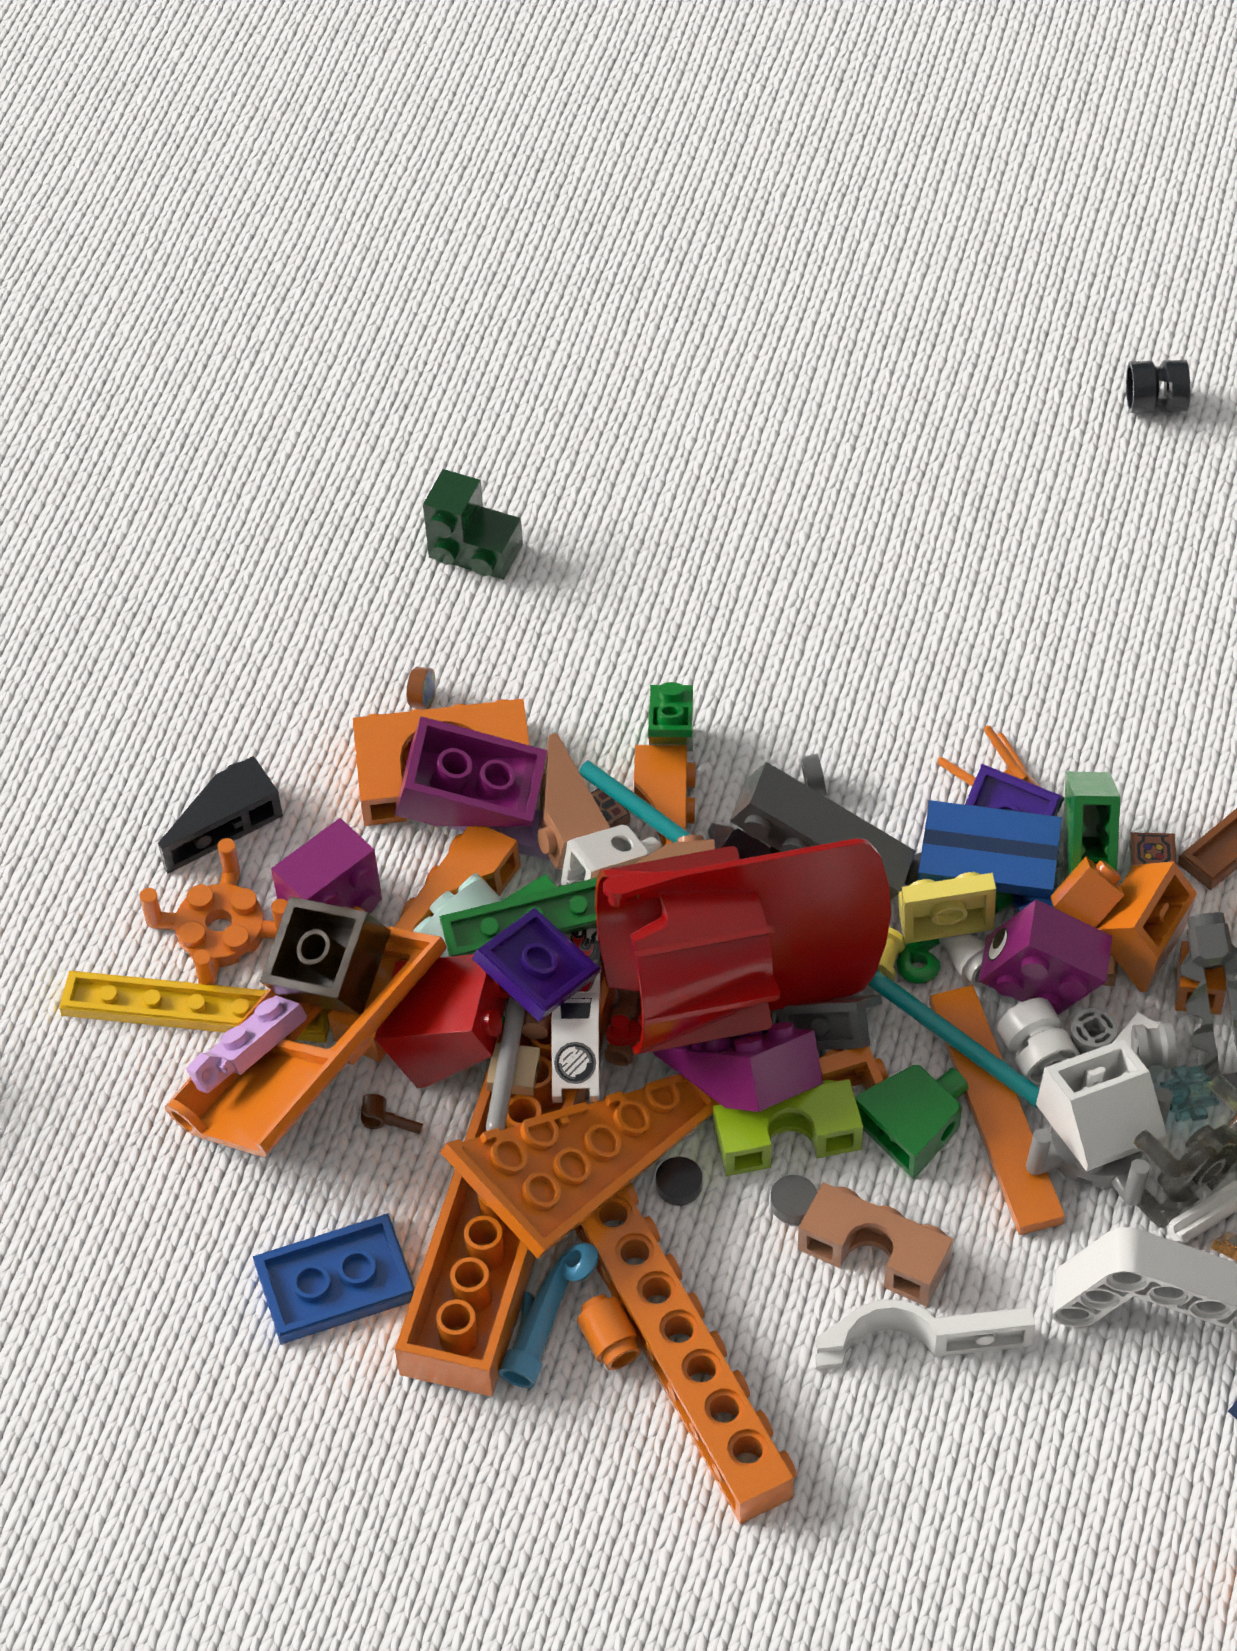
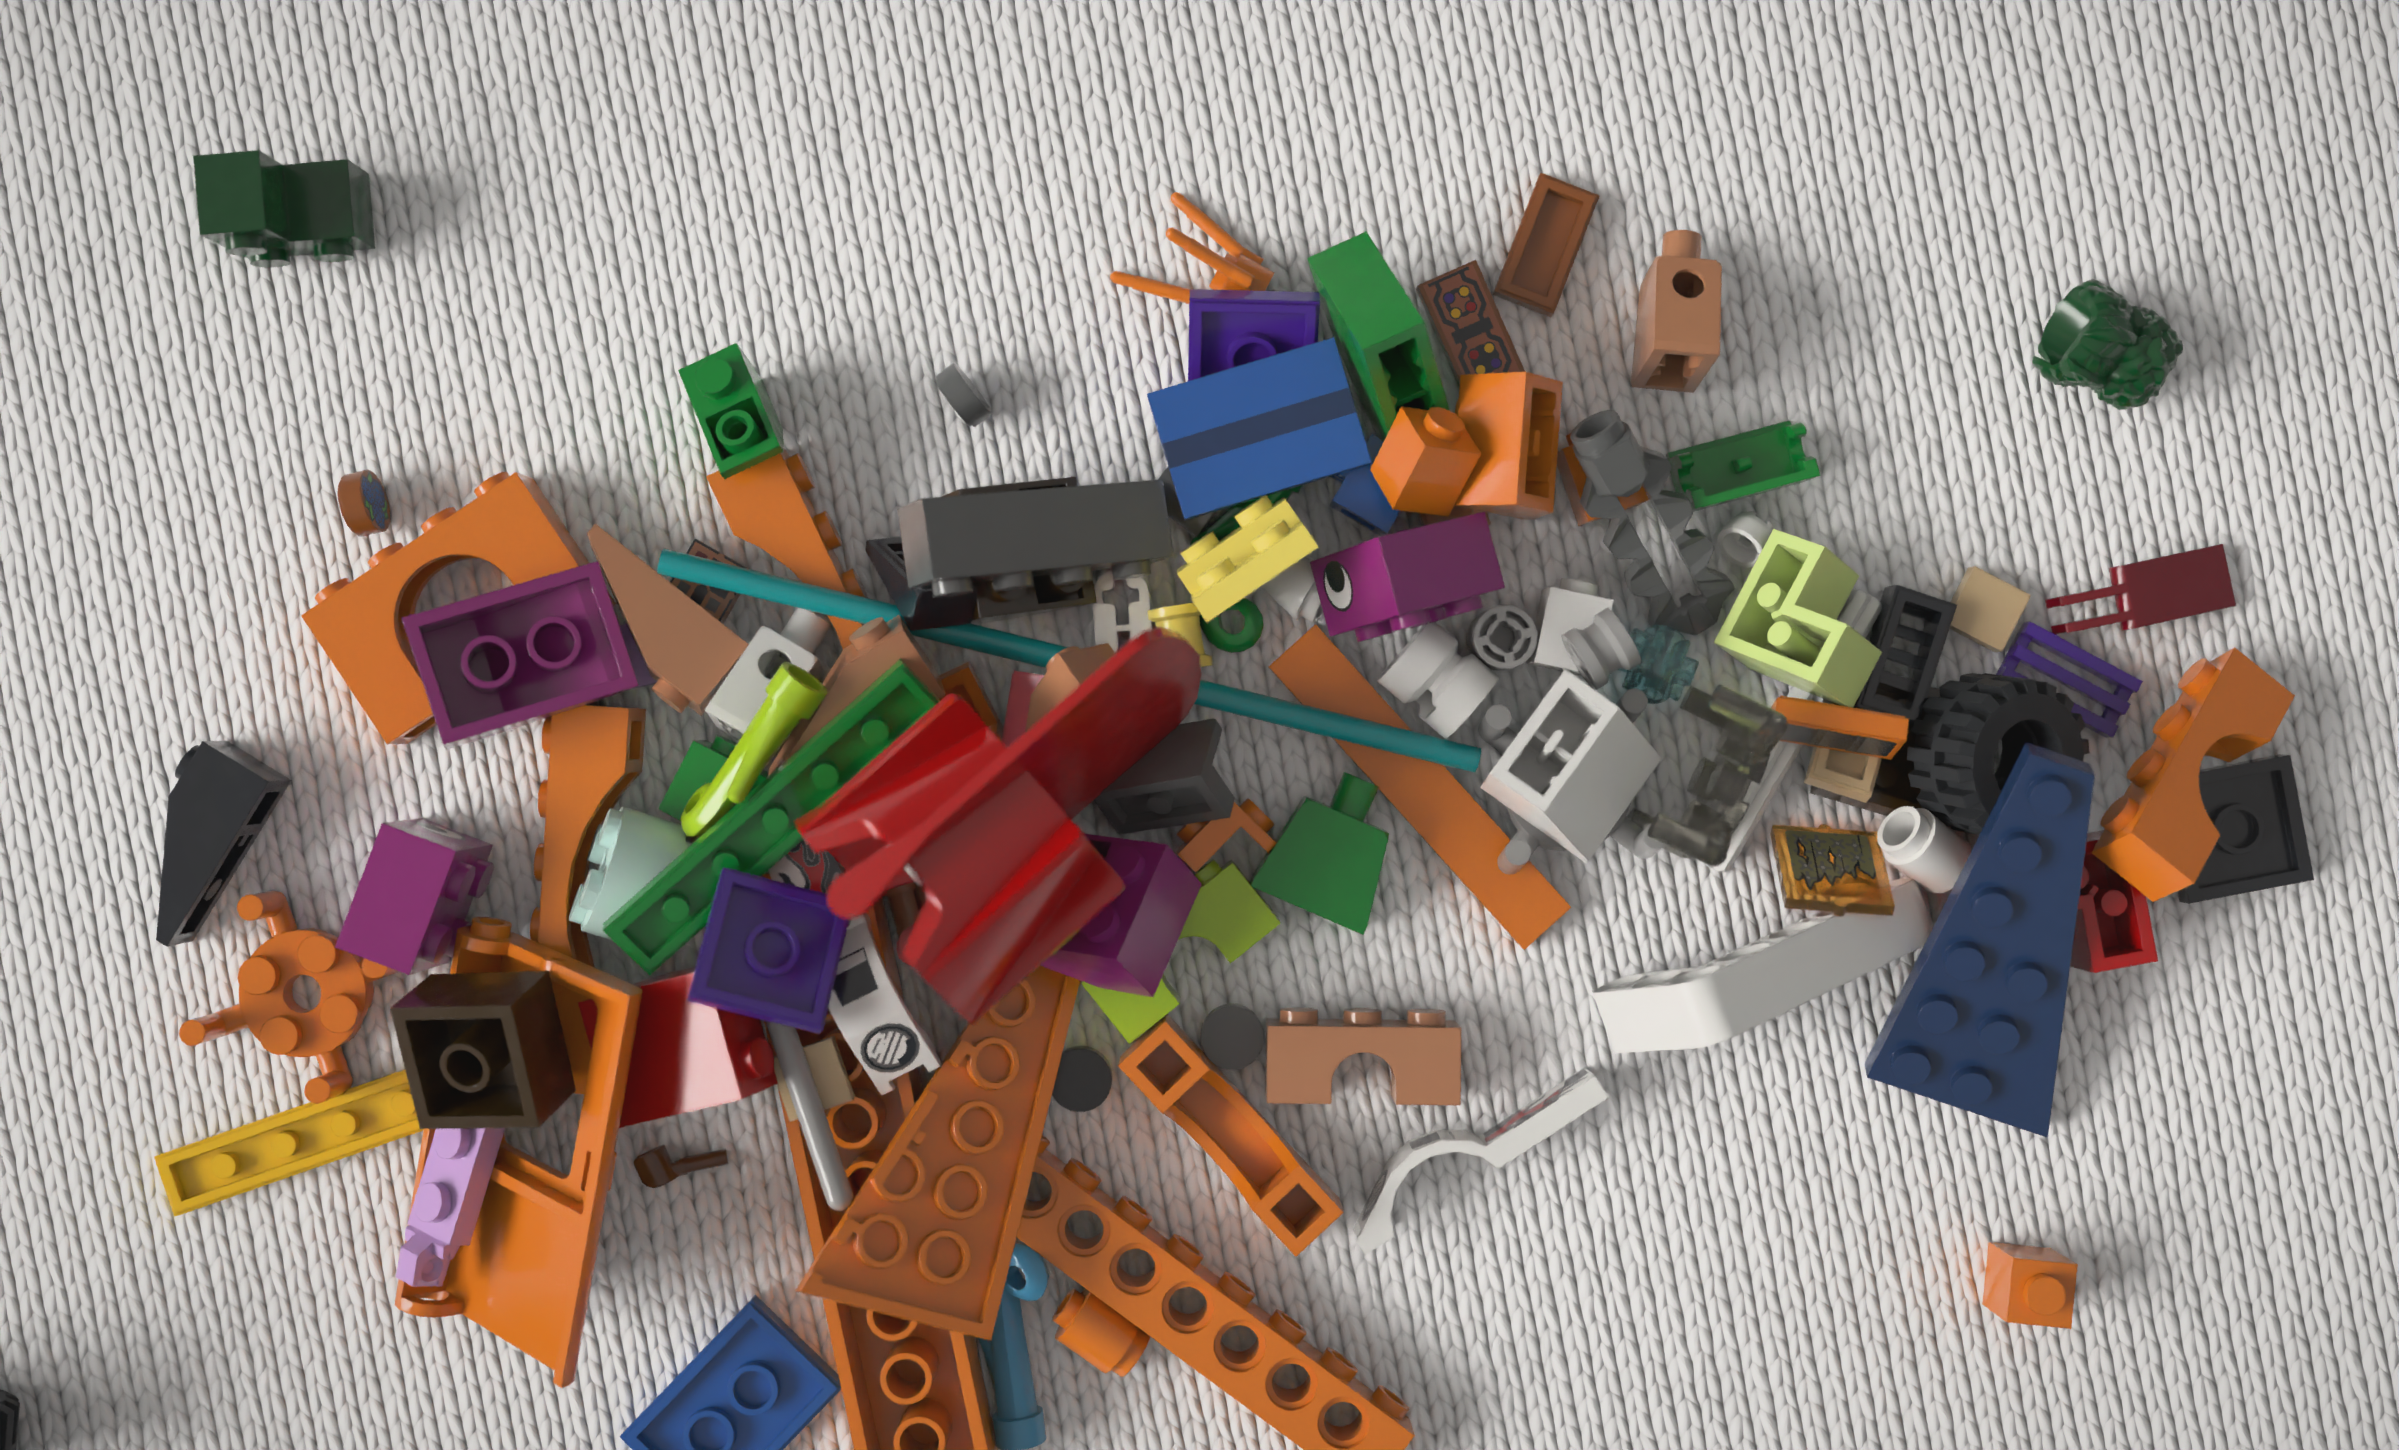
camera: 30 degrees left, 35 degrees up
(623, 848) = (790, 697): none -> lime plant
(754, 1220) = (1233, 1133): none -> orange arch

